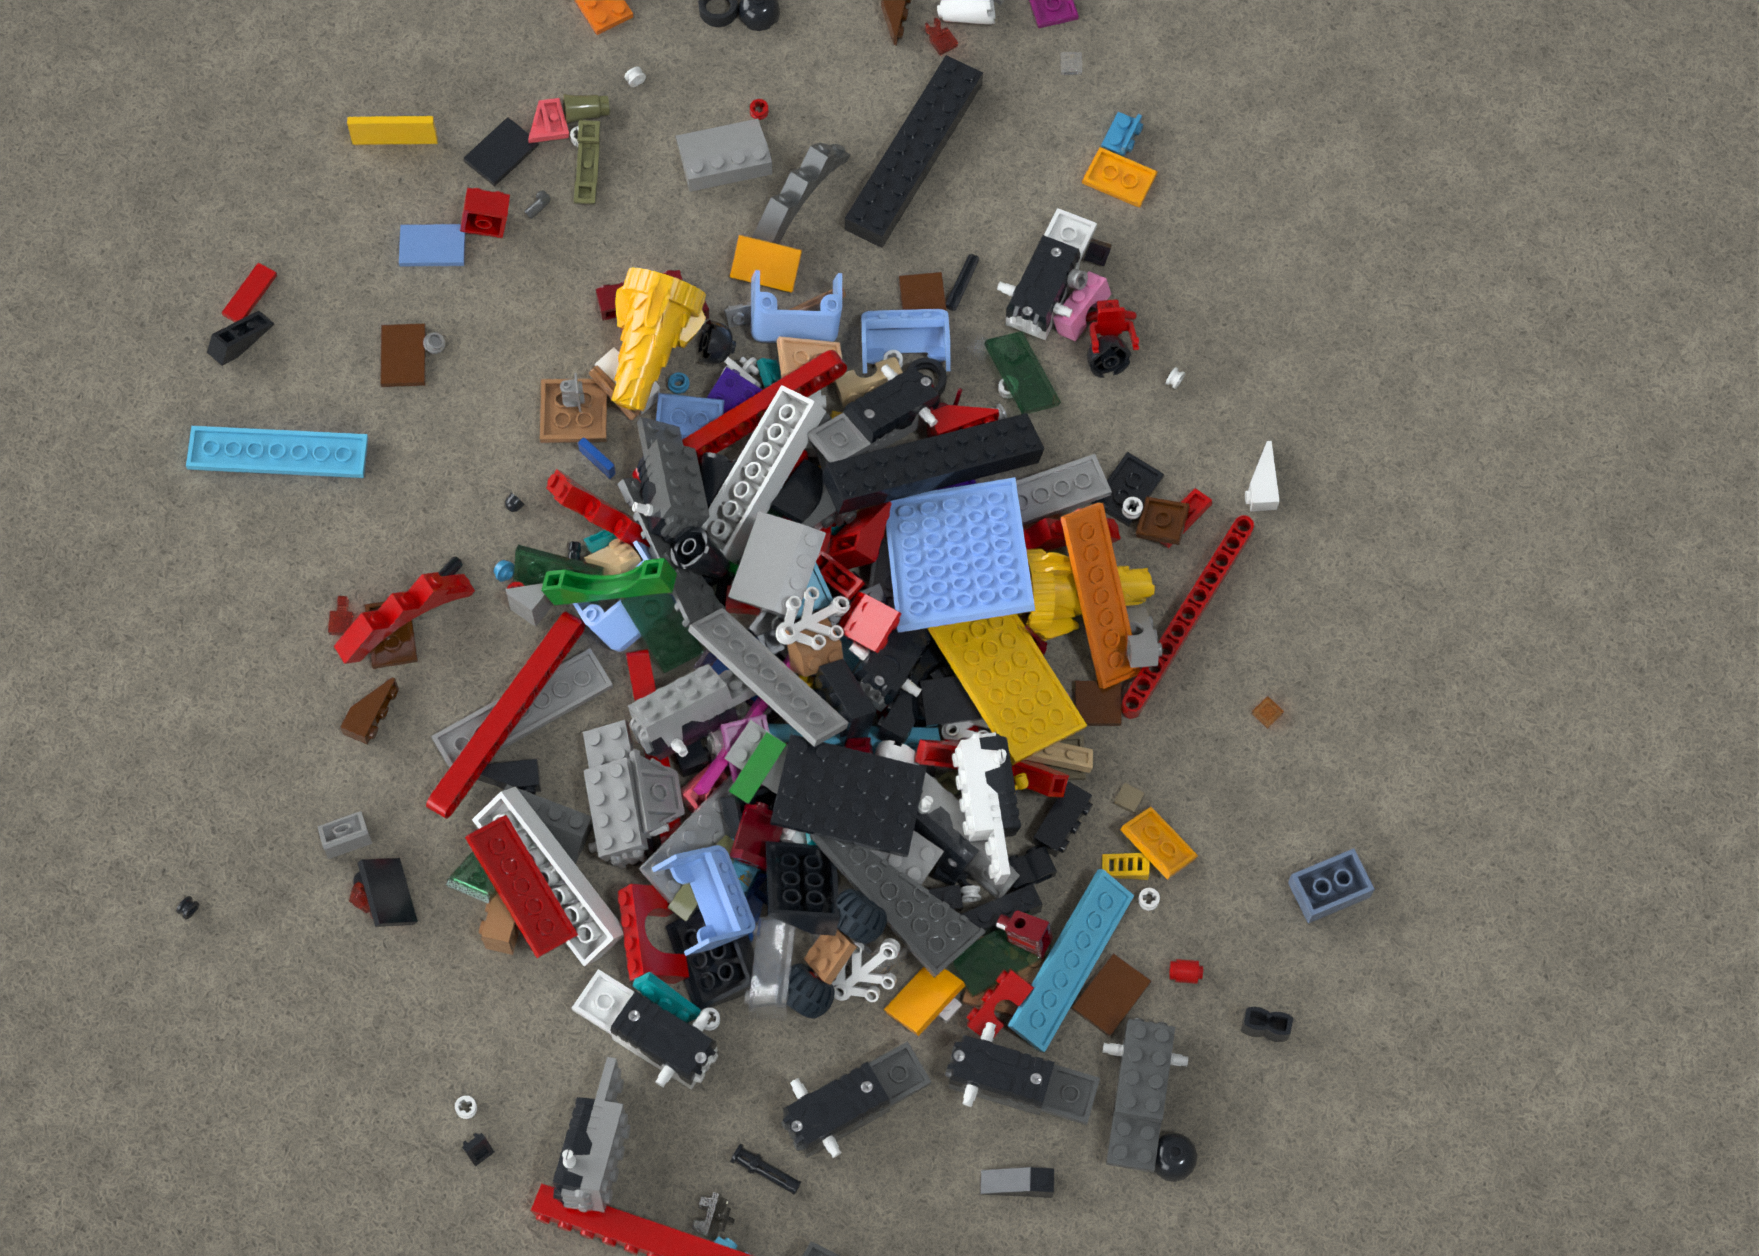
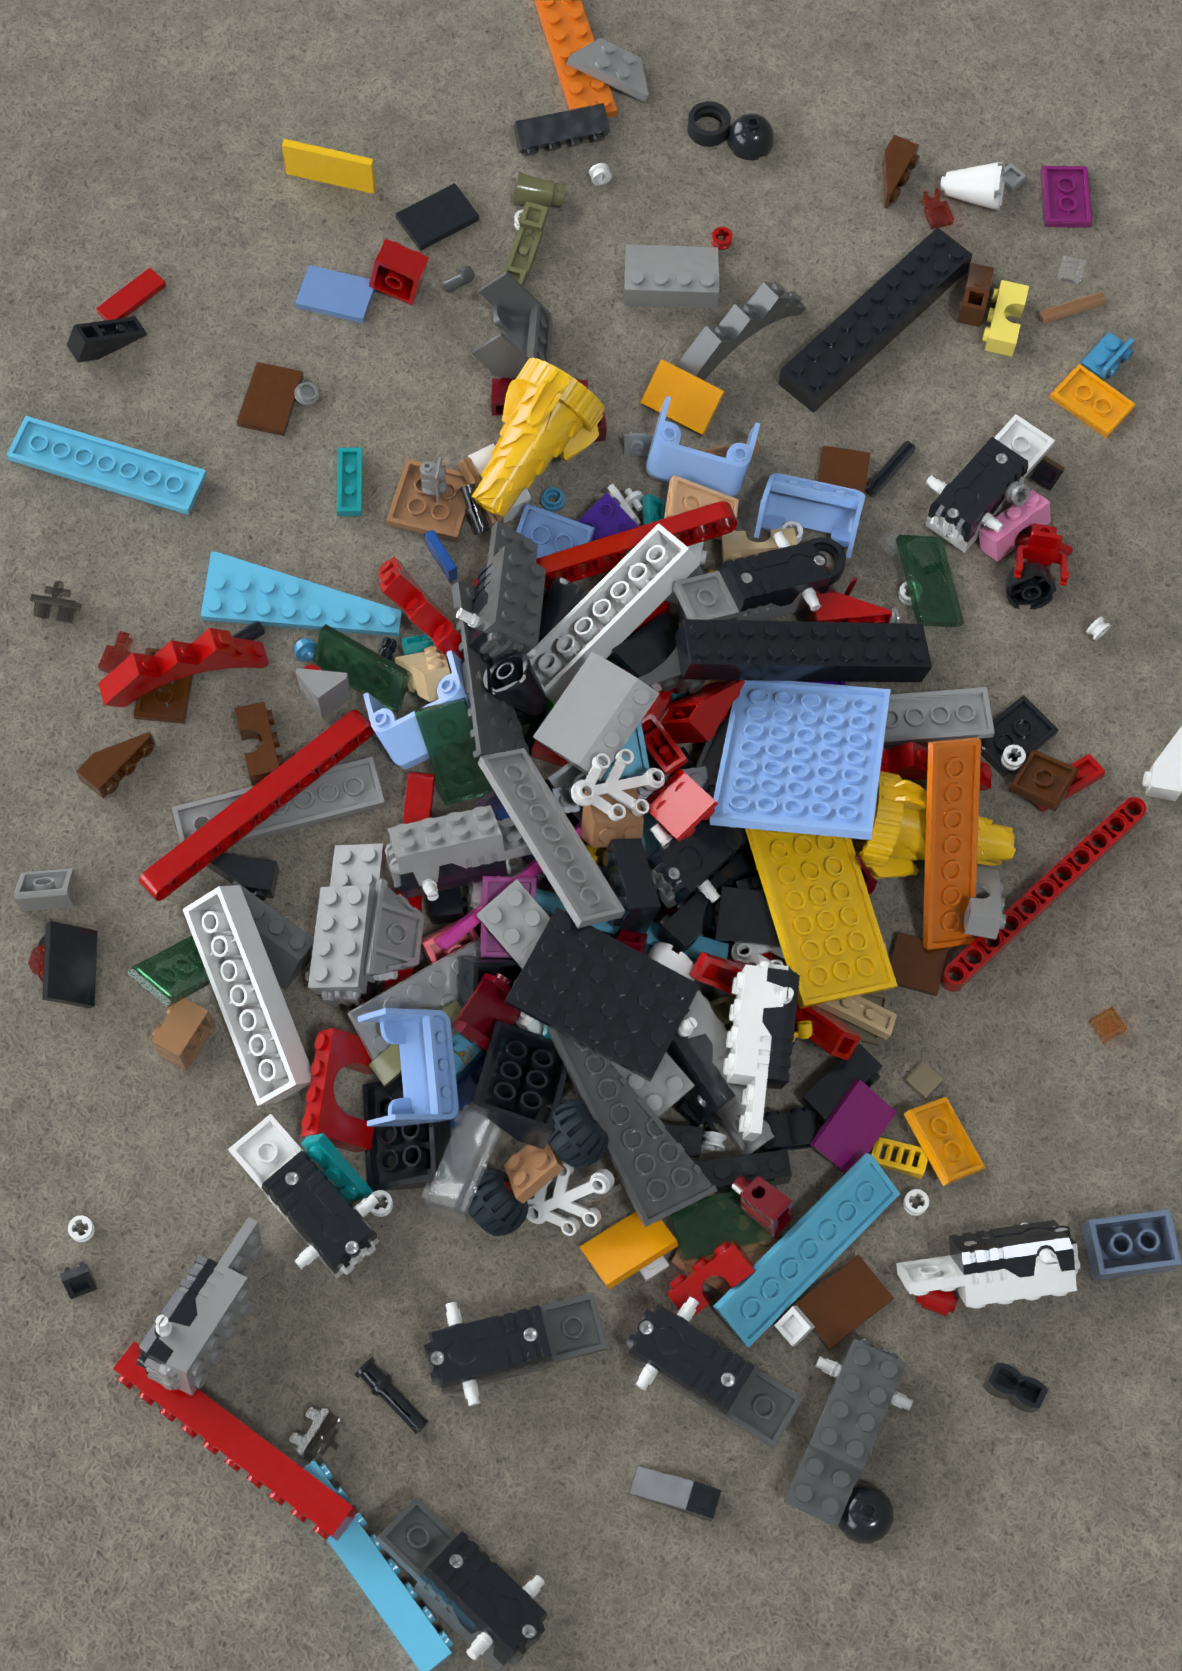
camera: 15 degrees right, 0 degrees up
(283, 587) = (66, 607): none -> clear smoke hips
(441, 533) = (252, 593): none -> medium azure wing
(481, 645) = (255, 723): none -> reddish brown arch
(496, 412) = (349, 481): none -> teal plate
(513, 503) = (338, 581): black hinge -> none
(521, 886) = (211, 998): red plate -> none
(548, 122) = (495, 198): coral wing -> none
(570, 587) = (449, 694): green arch -> none
(589, 43) = (561, 128): none -> black brick
(611, 238) = (525, 326): none -> dark grey windscreen
(621, 420) = (474, 510): none -> black pin
(716, 343) = (605, 467): black cylinder -> none
(757, 768) = (508, 935): green tile -> none
(995, 106) = (976, 295): none -> reddish brown slope
(1026, 137) = (1003, 334): none -> light yellow arch
(1077, 1024) = (794, 1326): none -> white plate
(1080, 97) = (1072, 307): none -> medium nougat axle
(1081, 851) = (853, 1126): none -> magenta tile
(1229, 930) = (1000, 1265): none -> piece

